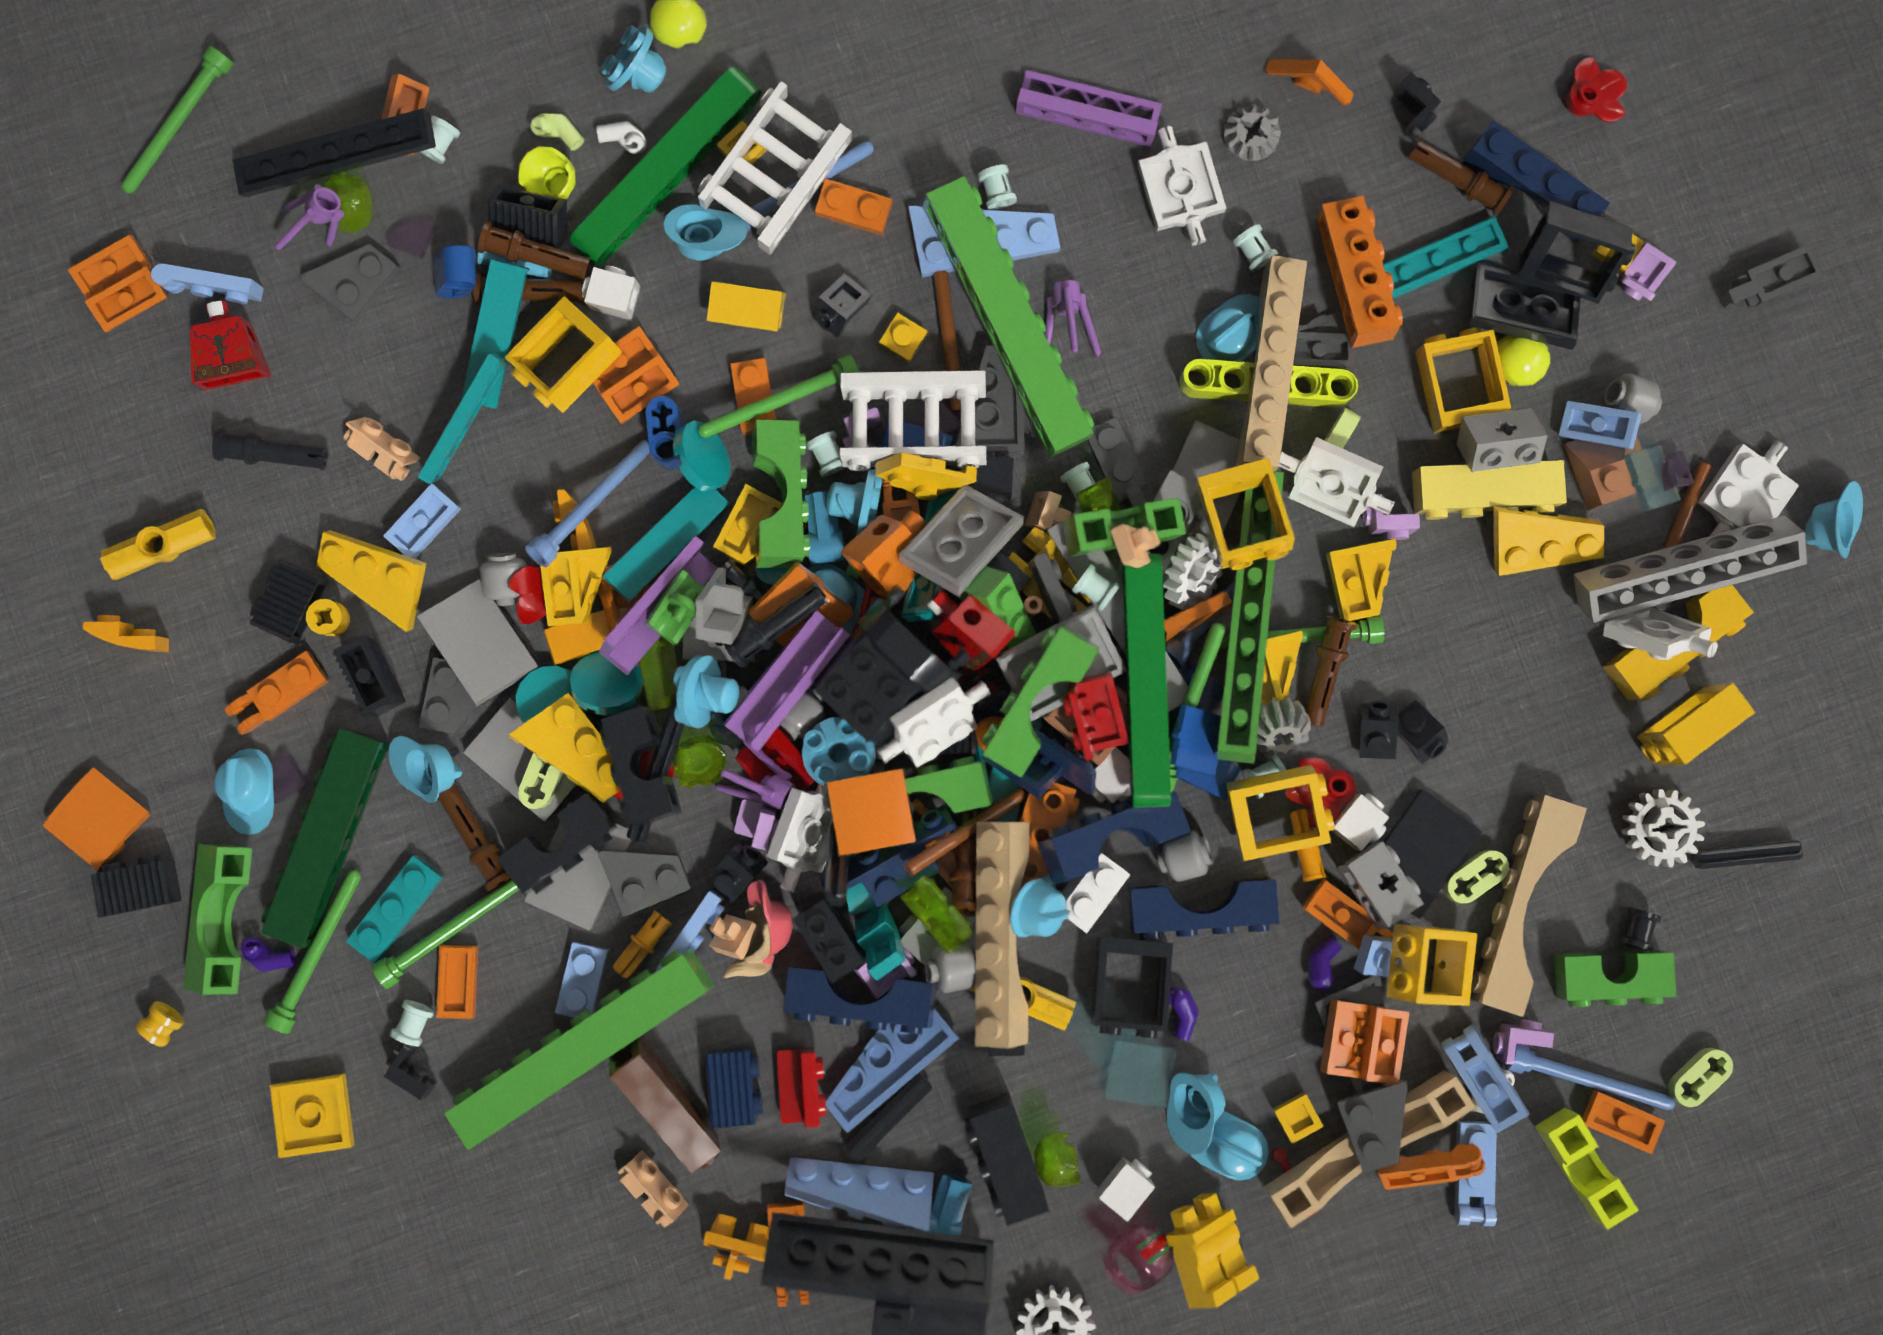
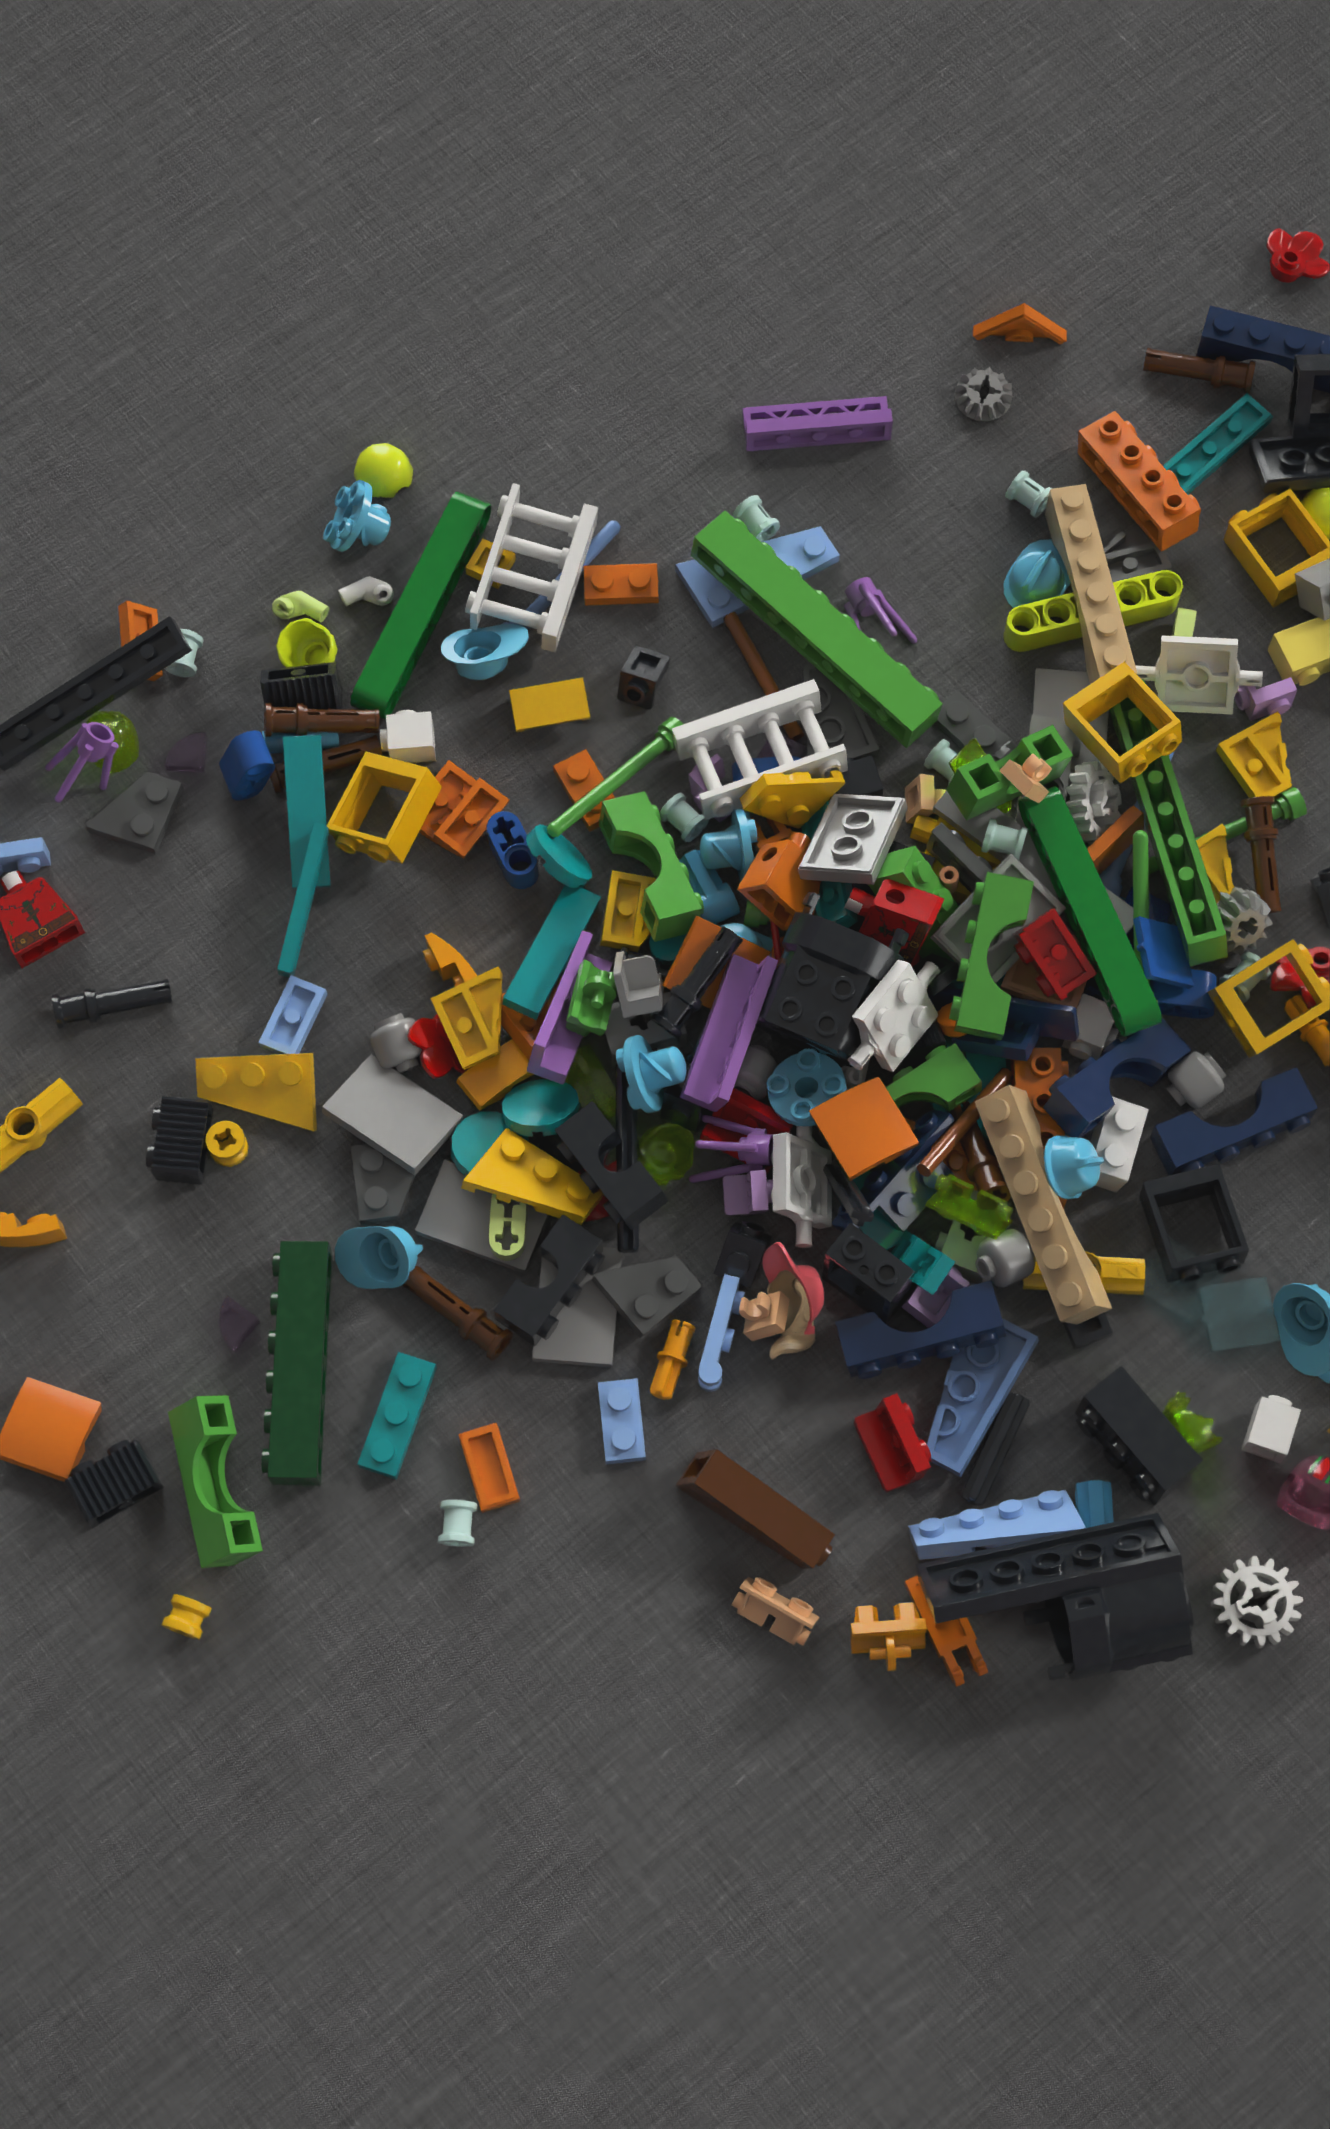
camera: 15 degrees left, 15 degrees down
(246, 790) = (199, 1348): medium azure piece -> none
(264, 958) = (276, 1513): dark purple arm -> none
(279, 691) = (199, 1236): orange hinge -> none
(282, 1015) = (315, 1562): bright green piece -> none
(312, 1115) = (383, 1658): yellow plate -> none
(368, 437) = (239, 964): light nougat hinge -> none
(369, 676) = (293, 1182): black brick -> none
(390, 969) = (415, 1476): bright green piece -> none
(410, 1078) = (478, 1580): black bracket -> none
(544, 548) = (437, 985): medium blue piece -> none
(578, 1049) = (646, 1480): bright green brick -> none
(733, 1087) = (821, 1471): dark blue brick -> none
(903, 338) = (716, 687): yellow plate -> none
(1181, 186) = (935, 462): white plate -> none
(1186, 1010) = (1261, 1236): dark purple arm -> none
(1420, 100) = (1132, 314): black bracket -> none

